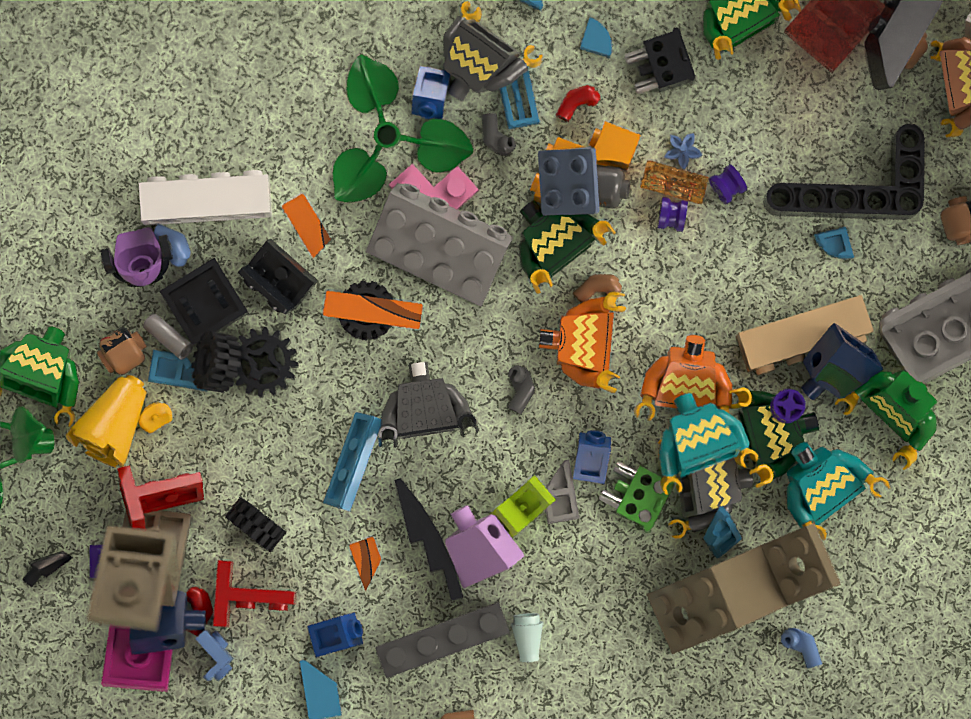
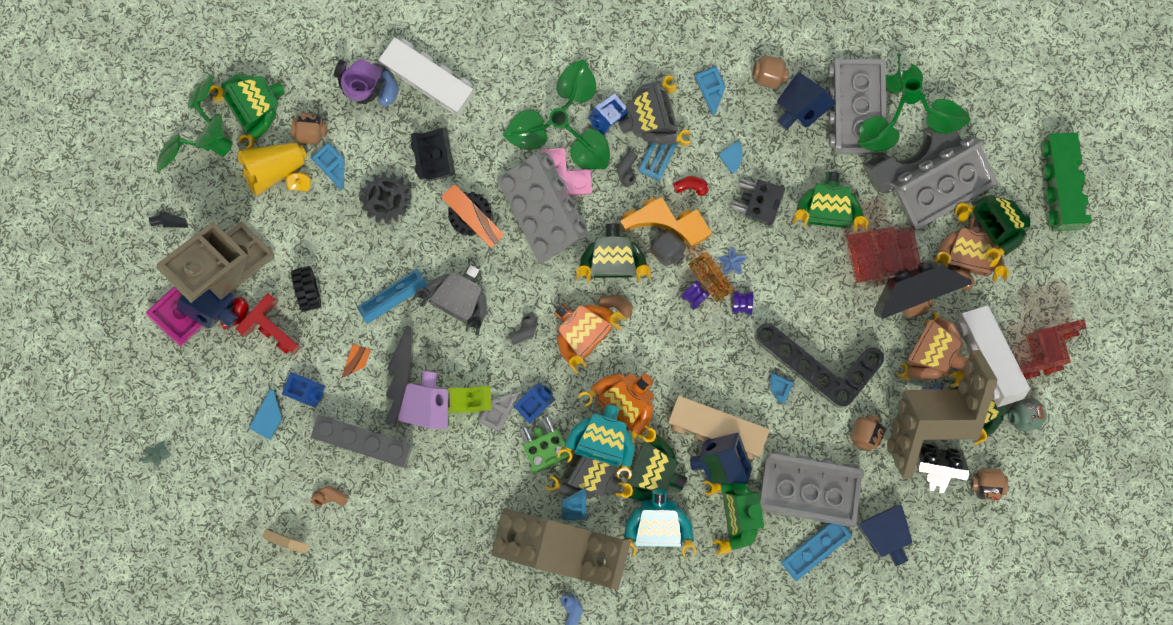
camera: 40 degrees right, 0 degrees up
(157, 494) = (262, 228): red bracket -> none
(168, 336) = (342, 140): light grey axle -> none
(204, 301) = (379, 136): black plate -> none
(215, 646) = (228, 342): medium blue bracket -> none
(216, 362) = (357, 176): black tyre -> none
(307, 224) = (475, 136): orange sticker -> none
(527, 634) = (415, 476): light aqua cone -> none
(568, 181) = (645, 227): sand blue bracket -> none
(789, 400) = (675, 459): dark purple wheel -> none

